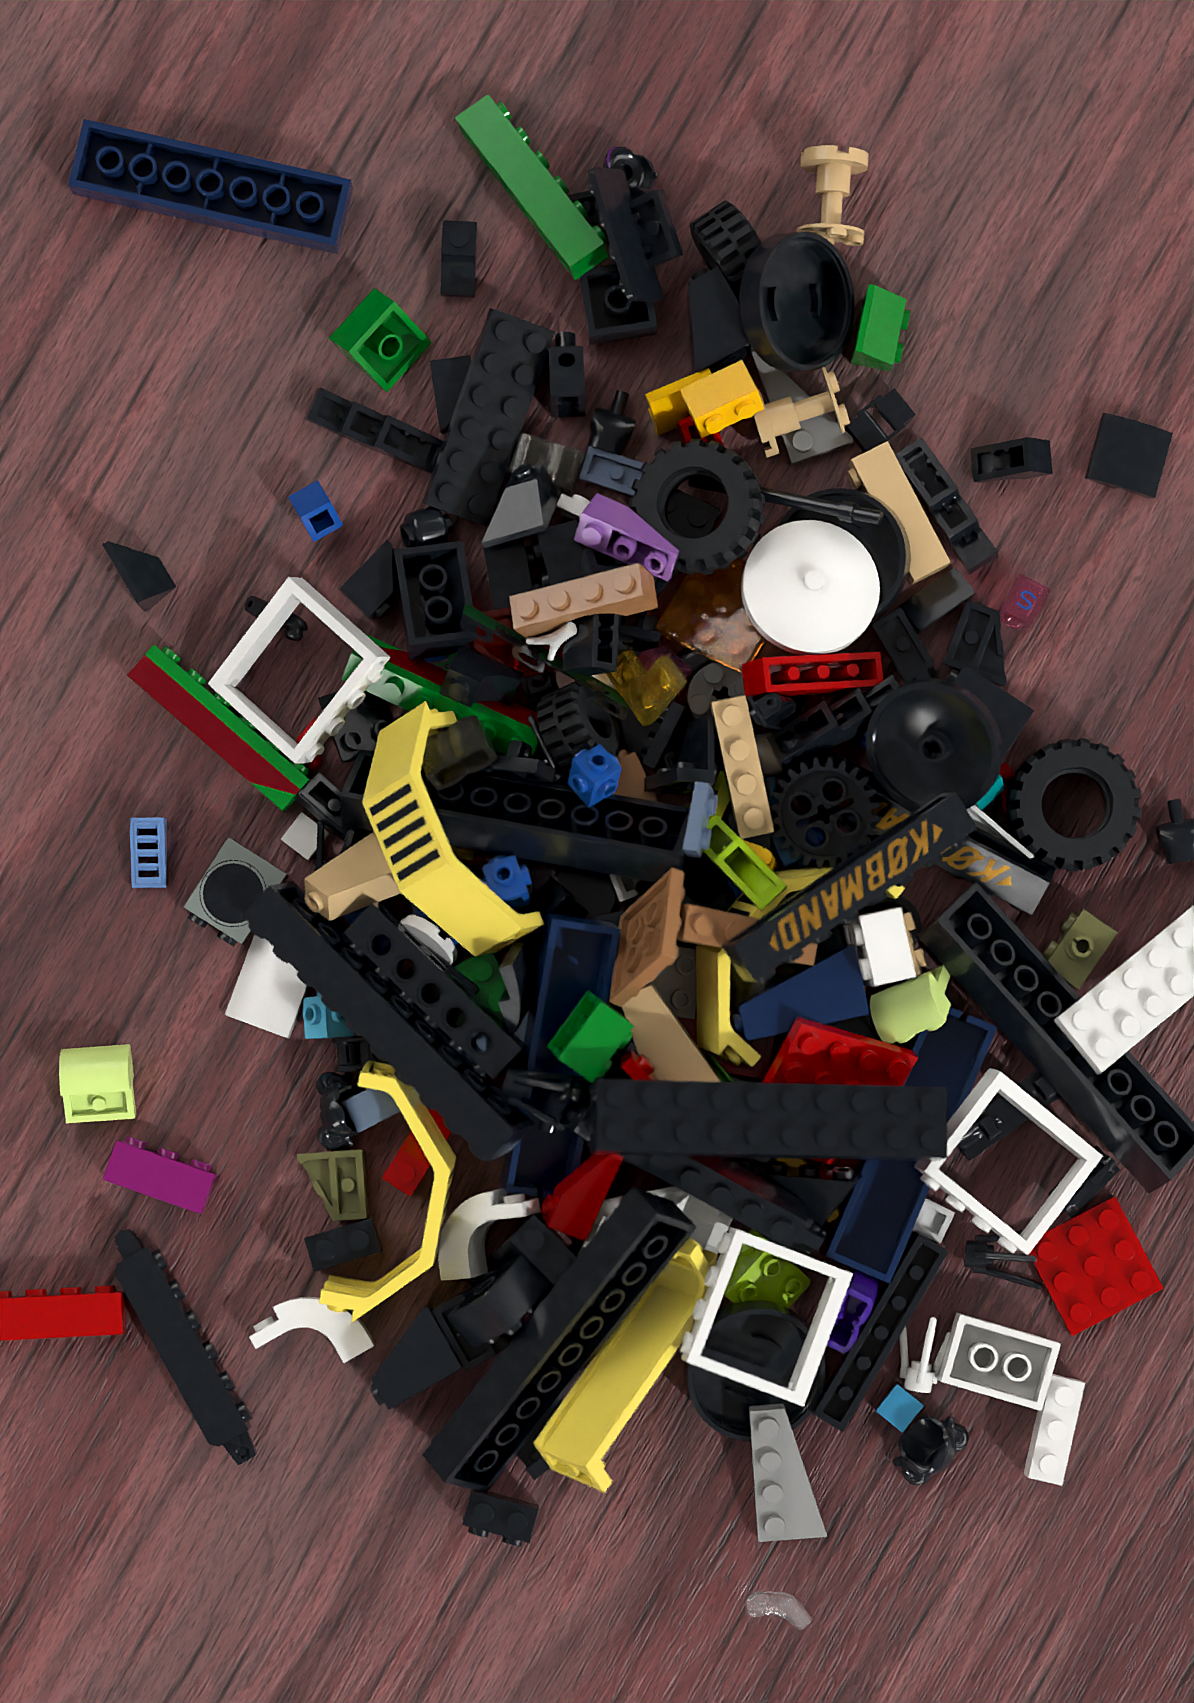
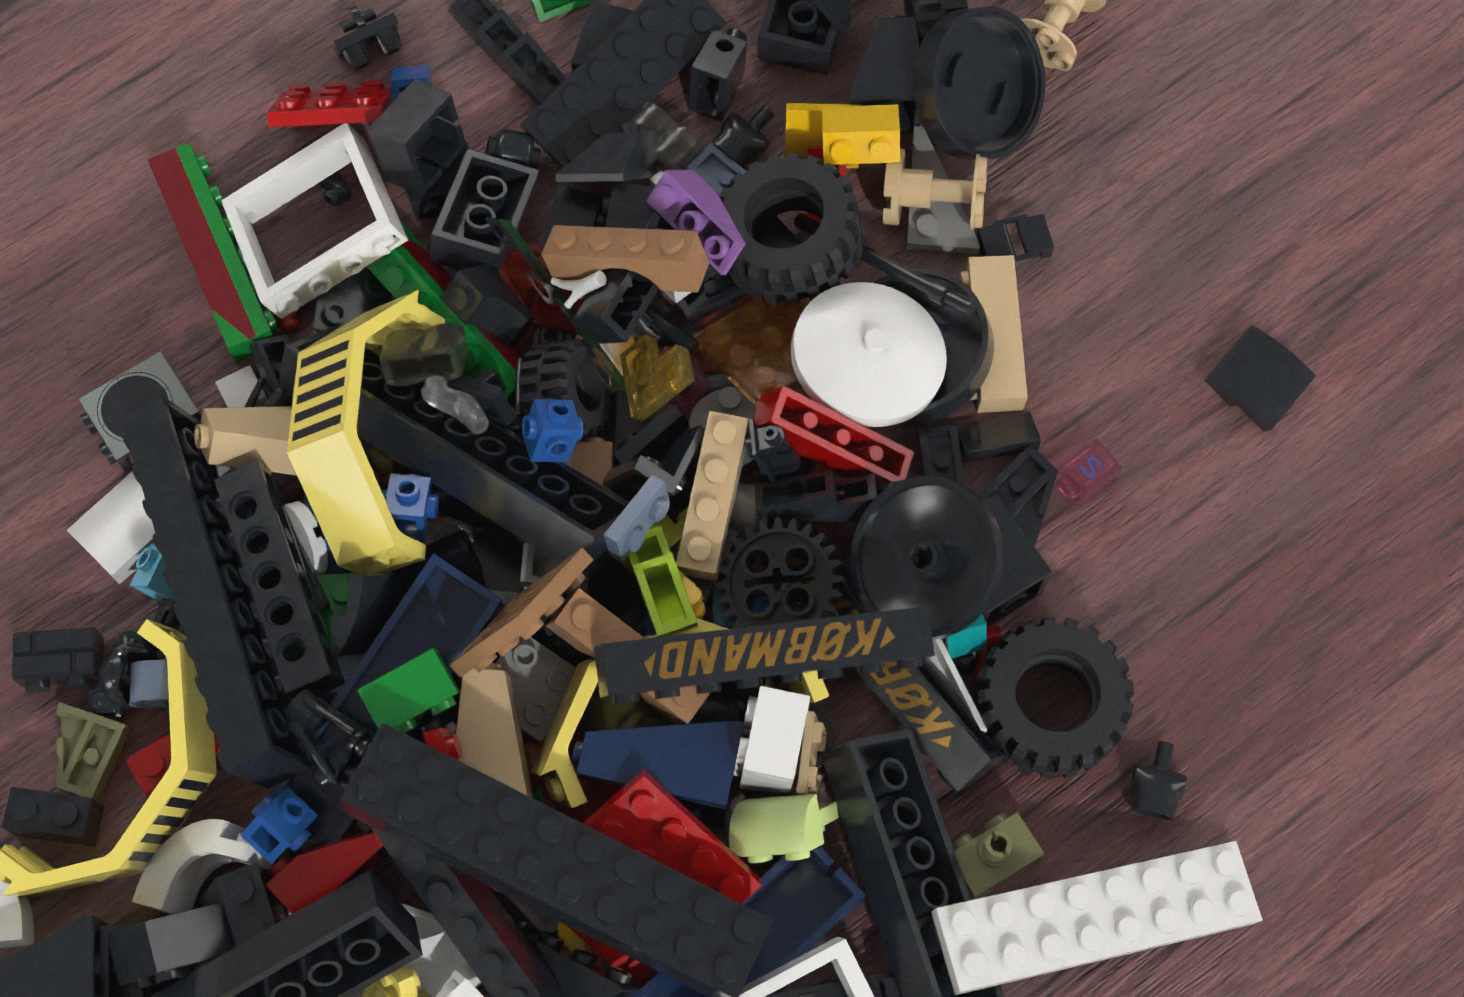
camera: 30 degrees right, 15 degrees down
(135, 840) = (98, 332): medium blue slope -> none
(142, 574) = (211, 74): black slope -> none
(258, 464) = (353, 45): none -> black hips
(260, 560) = (330, 105): none -> red plate
(277, 1121) = (57, 658): none -> black brick
(352, 551) = (419, 125): none -> black piece
(505, 783) = (455, 403): none -> clear arm
(536, 1178) = (279, 825): none -> blue brick
(879, 329) = (1052, 150): green slope -> none
(946, 506) = (1047, 349): black slope -> none
(1011, 460) = (1136, 328): black arch -> none

